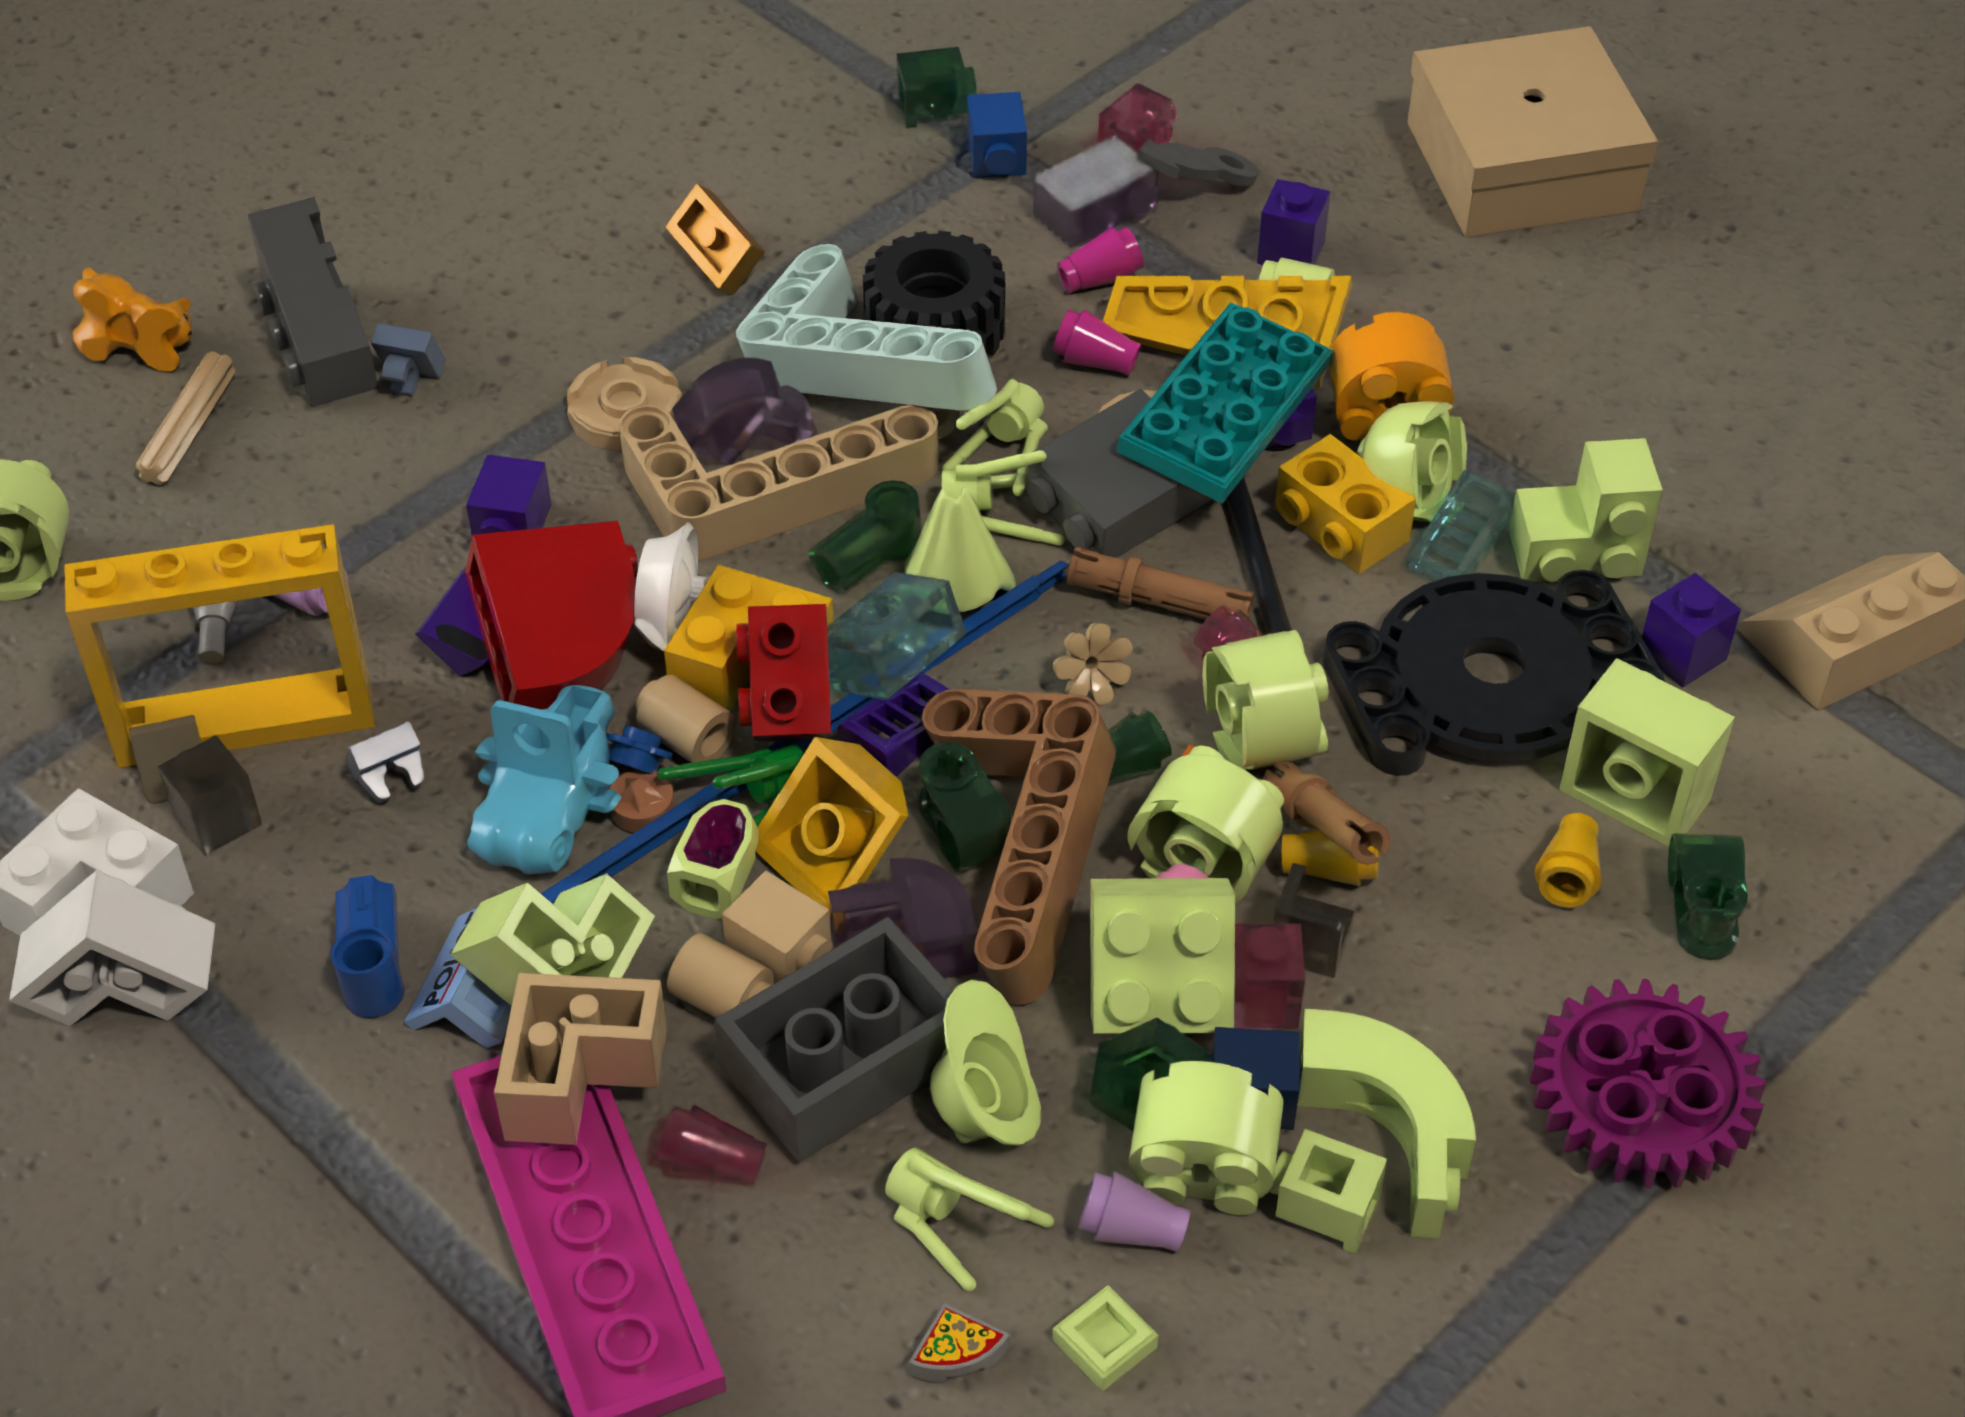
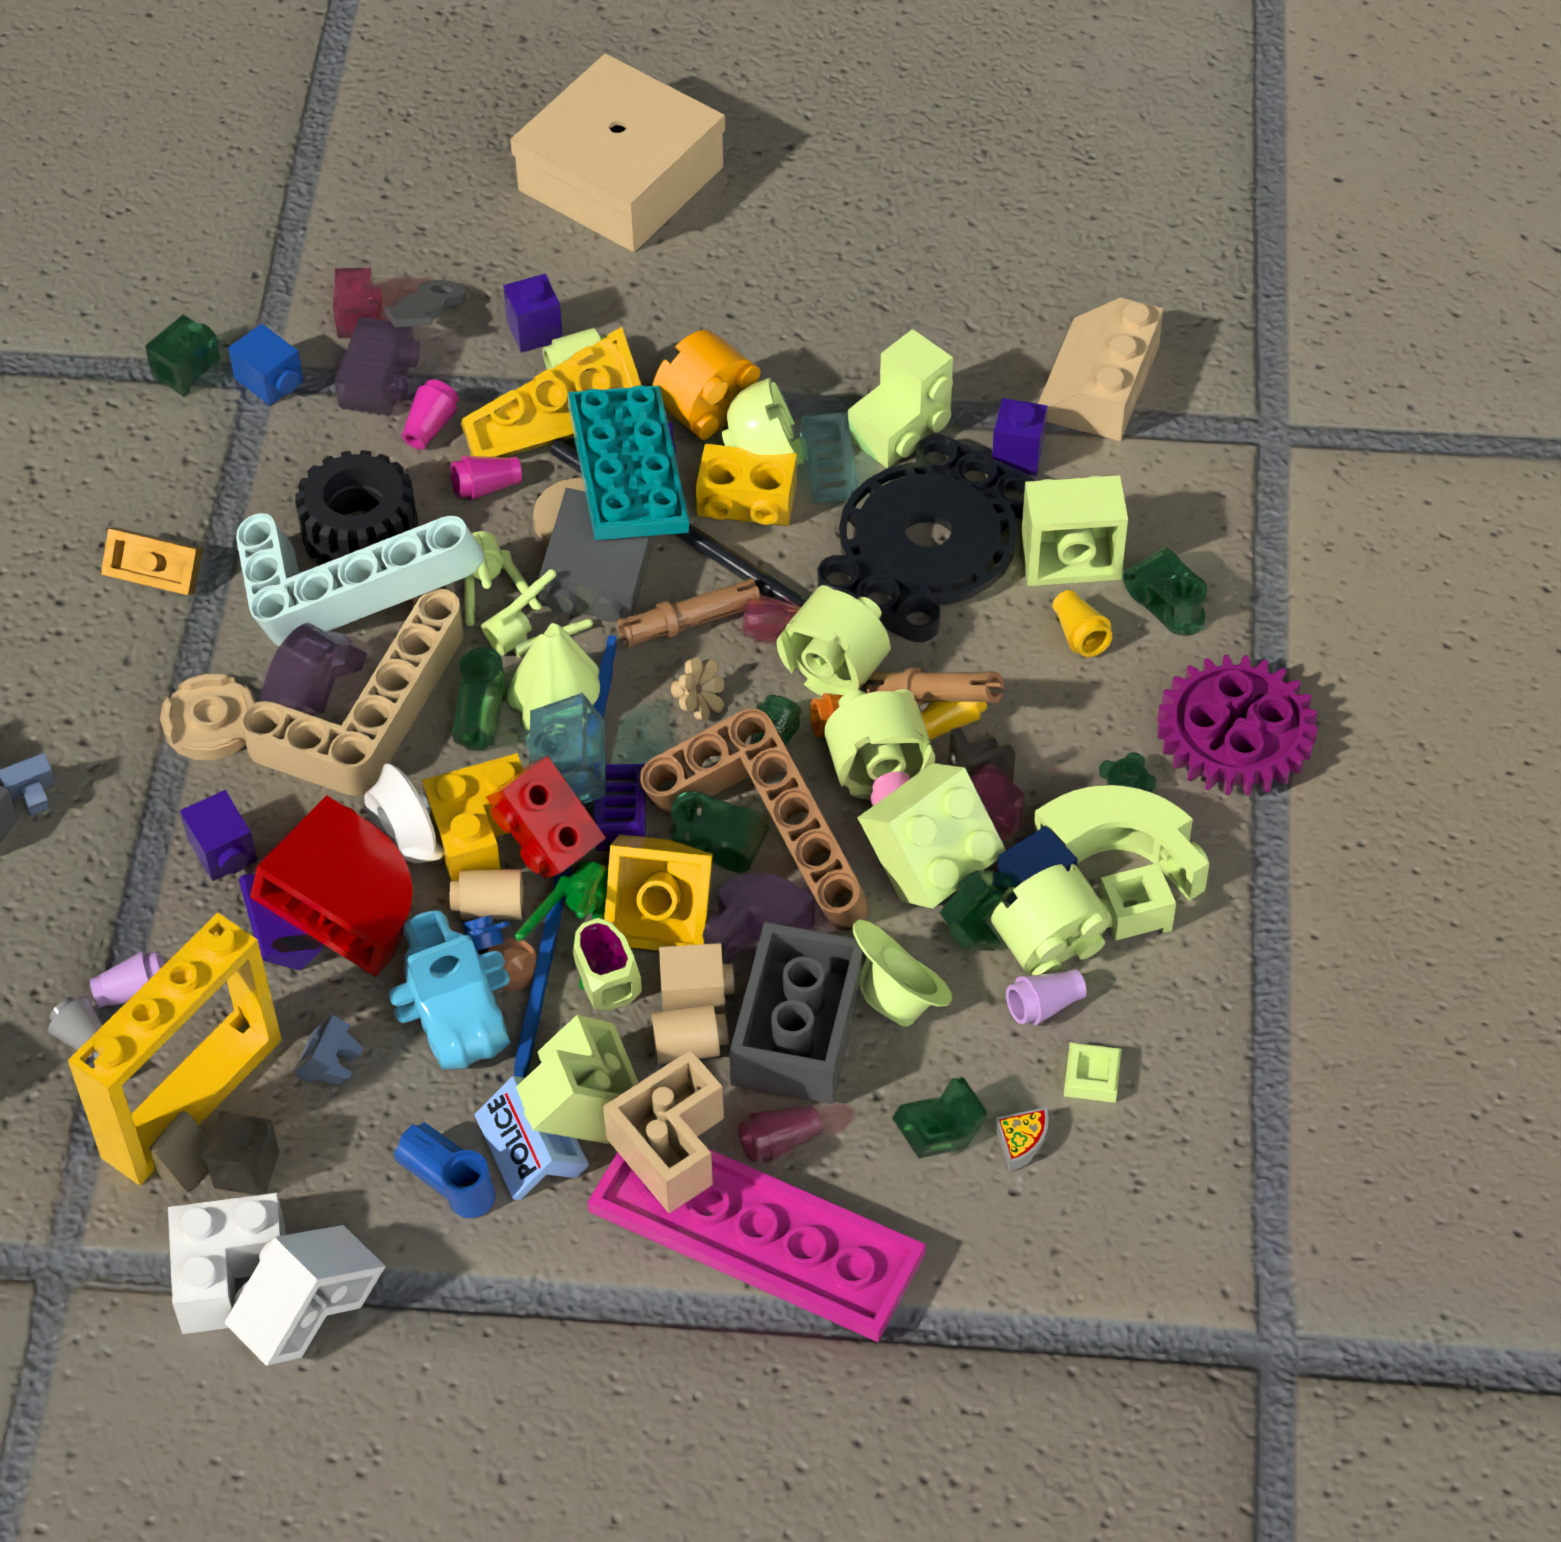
camera: 40 degrees left, 5 degrees up
(877, 1261) = (942, 1122): none -> clear green bracket
(932, 1189) = (923, 1060): yellowish green plant -> none
(1468, 1069) = (1130, 765): none -> clear green plate

